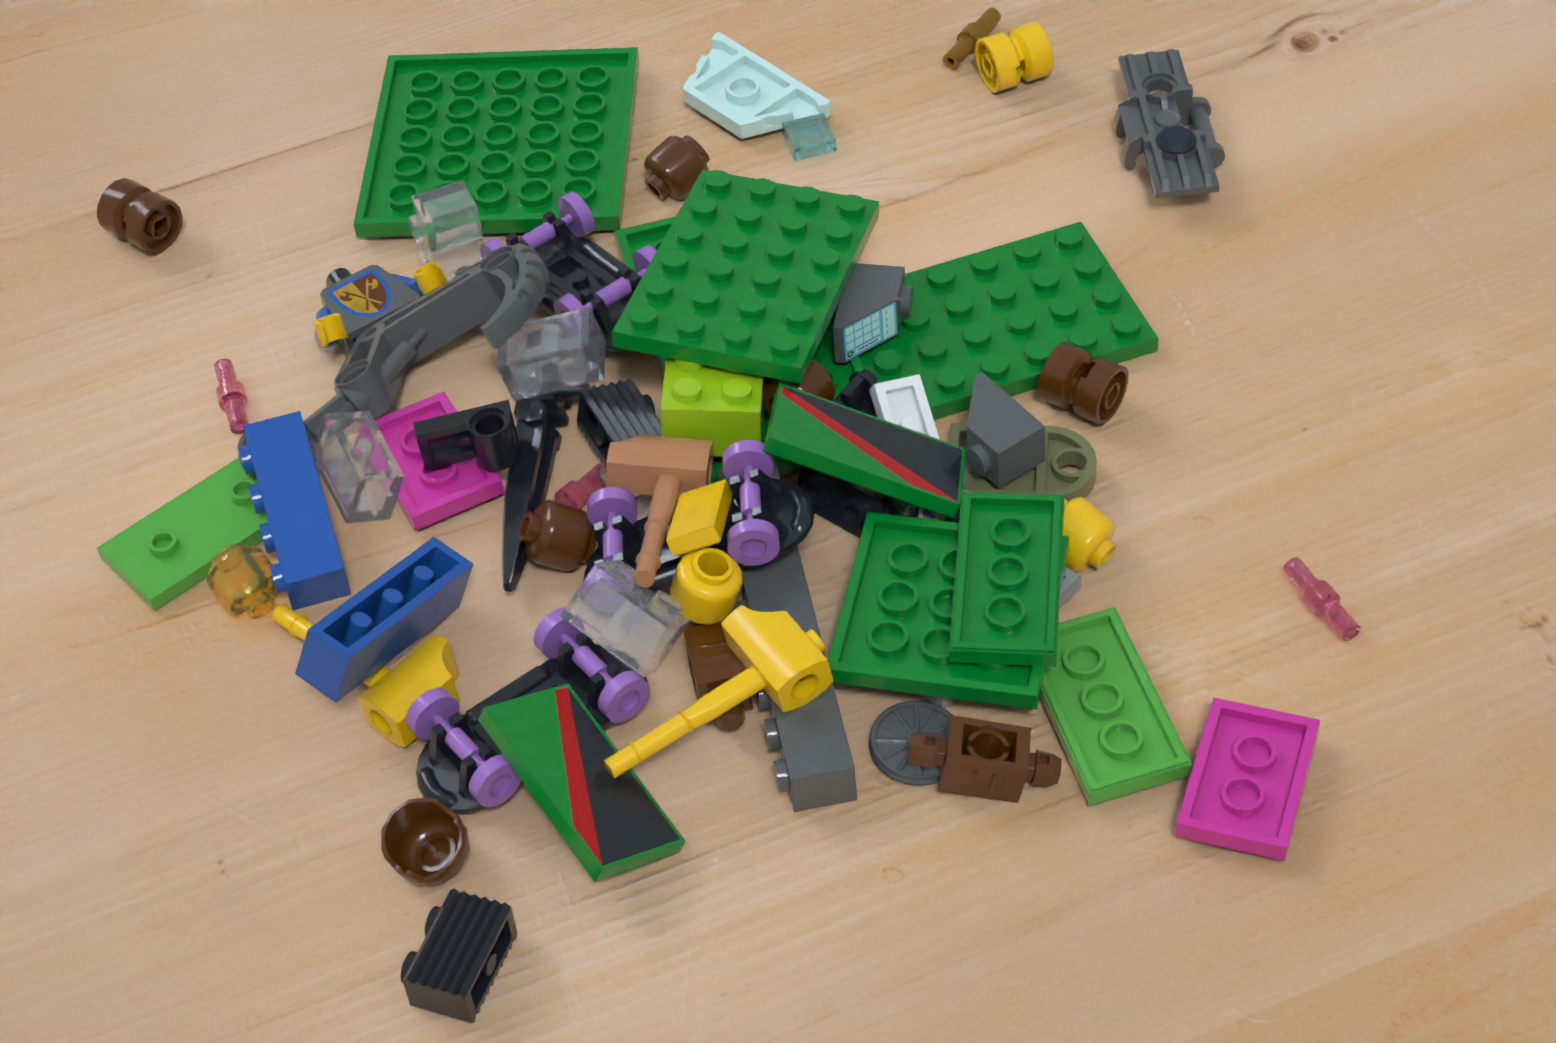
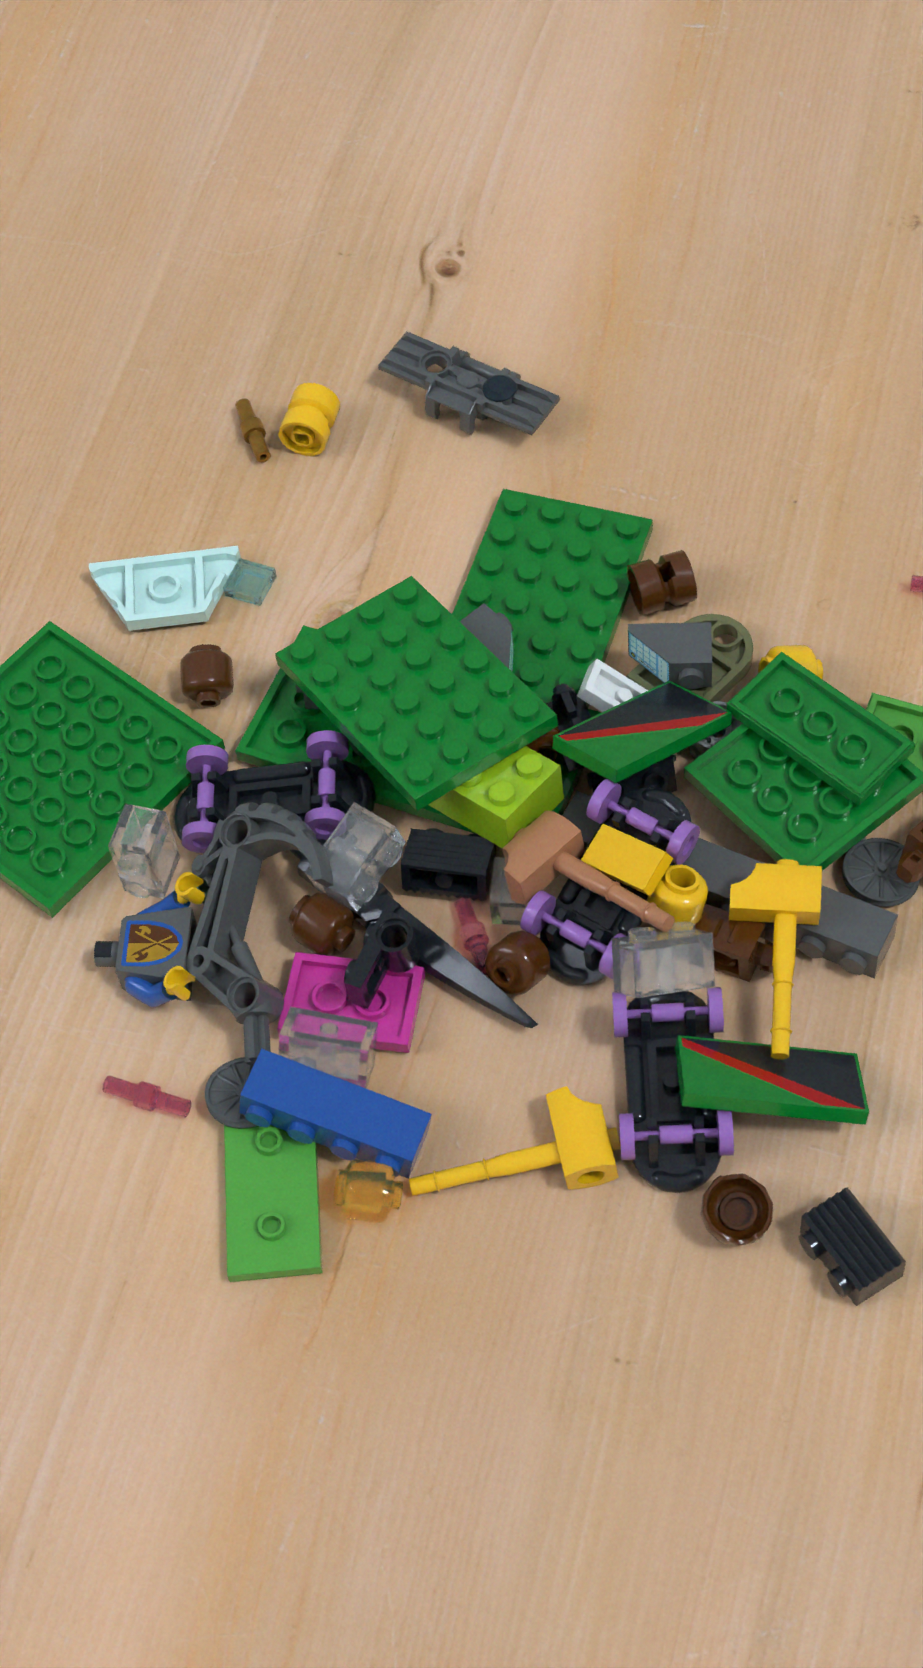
camera: 50 degrees left, 10 degrees up
(383, 619) = (520, 1114): blue brick -> none
(480, 384) = (322, 924): none -> reddish brown head

